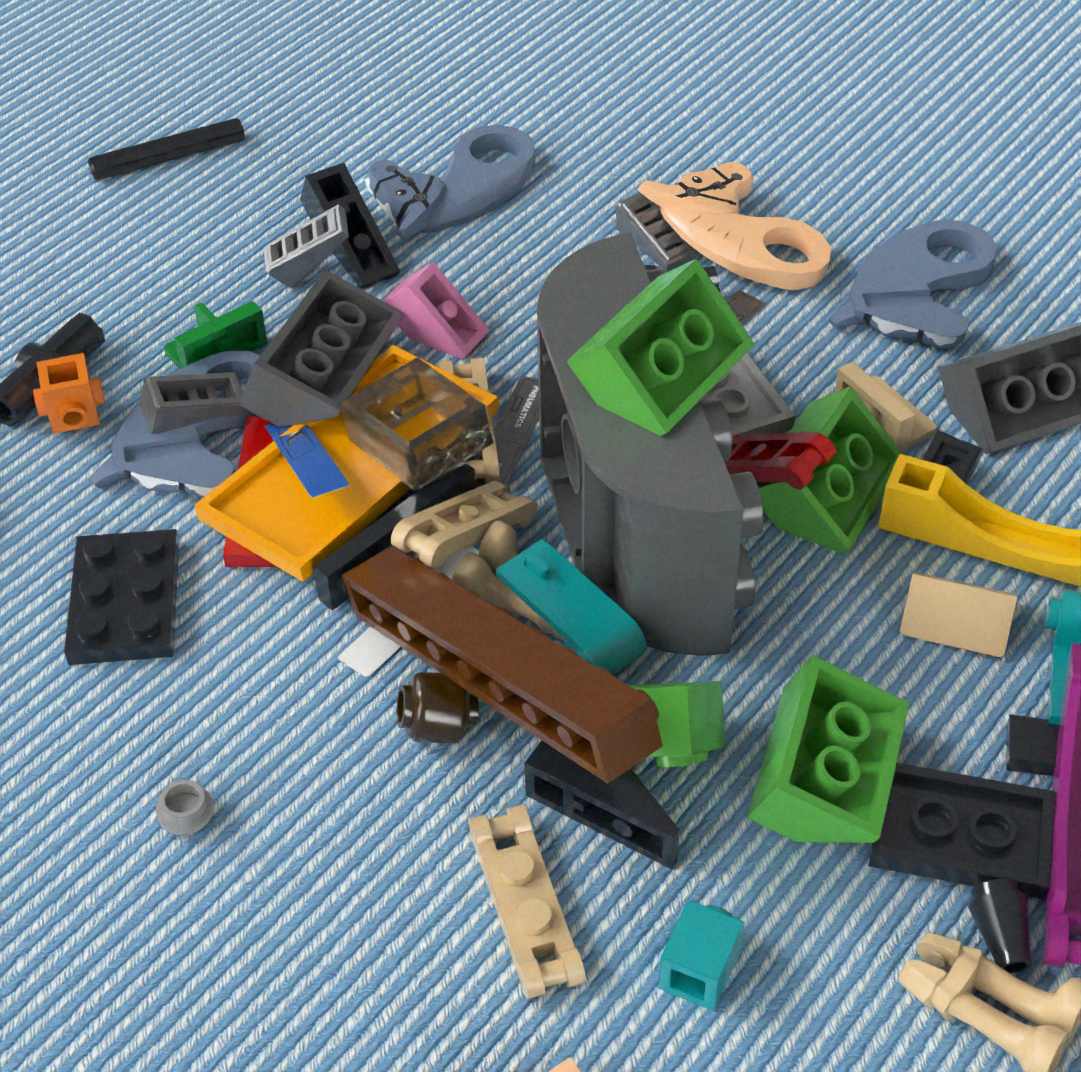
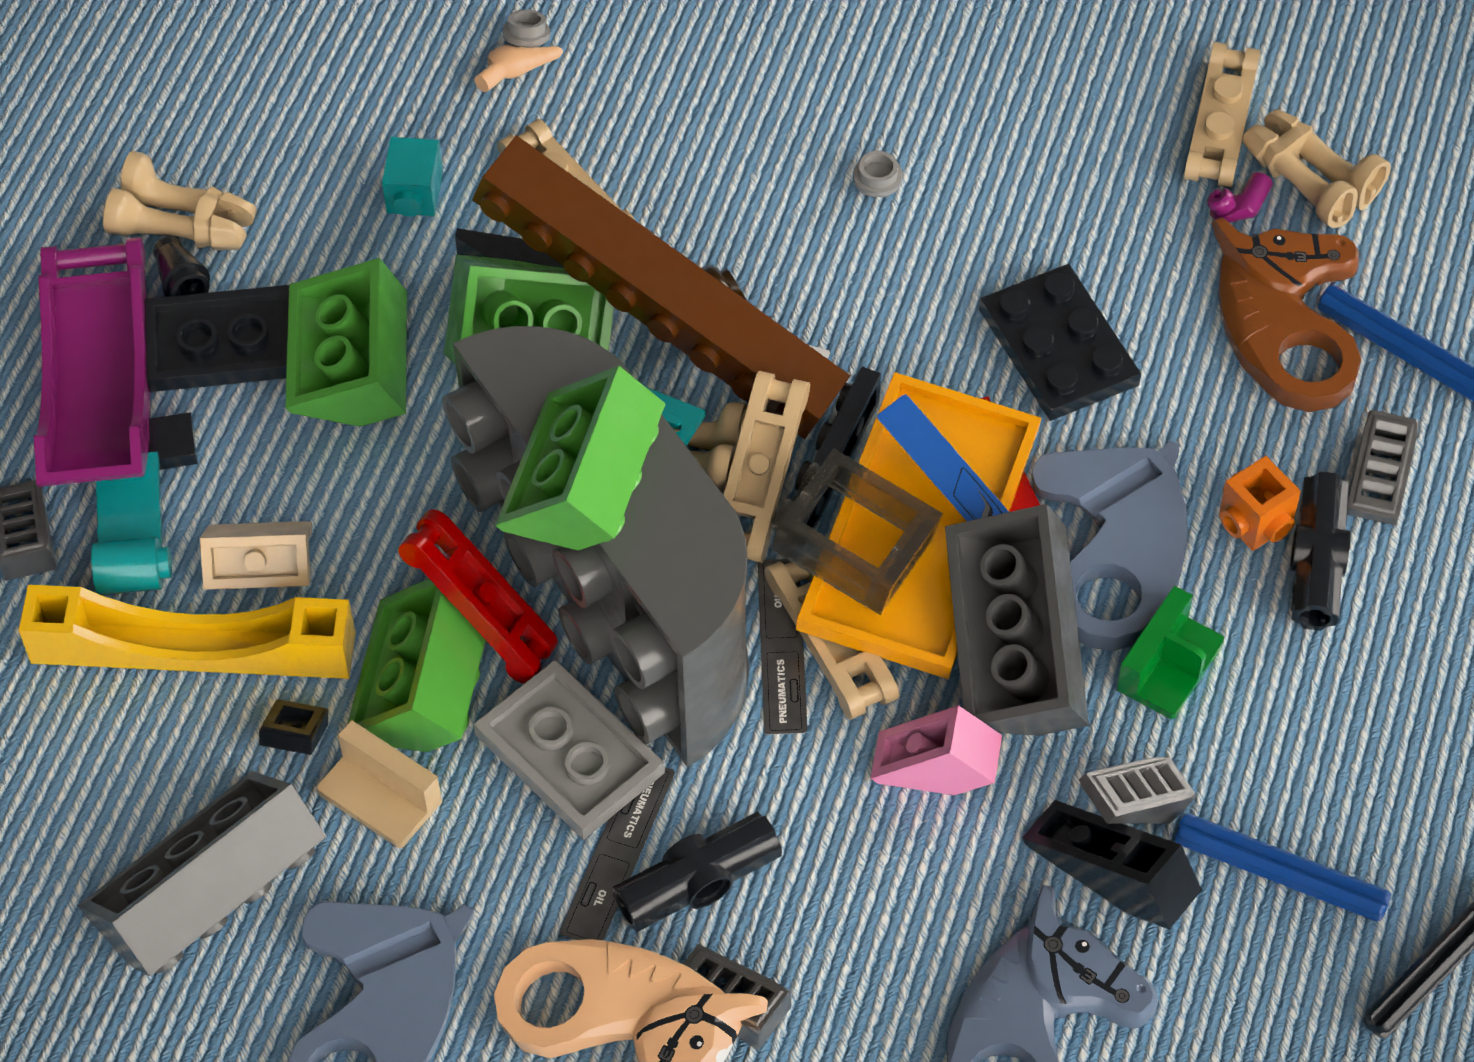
camera: 160 degrees right, 10 degrees up
(166, 412) = (1149, 538): flat silver slope -> none
(228, 207) = (1283, 867): none -> blue axle

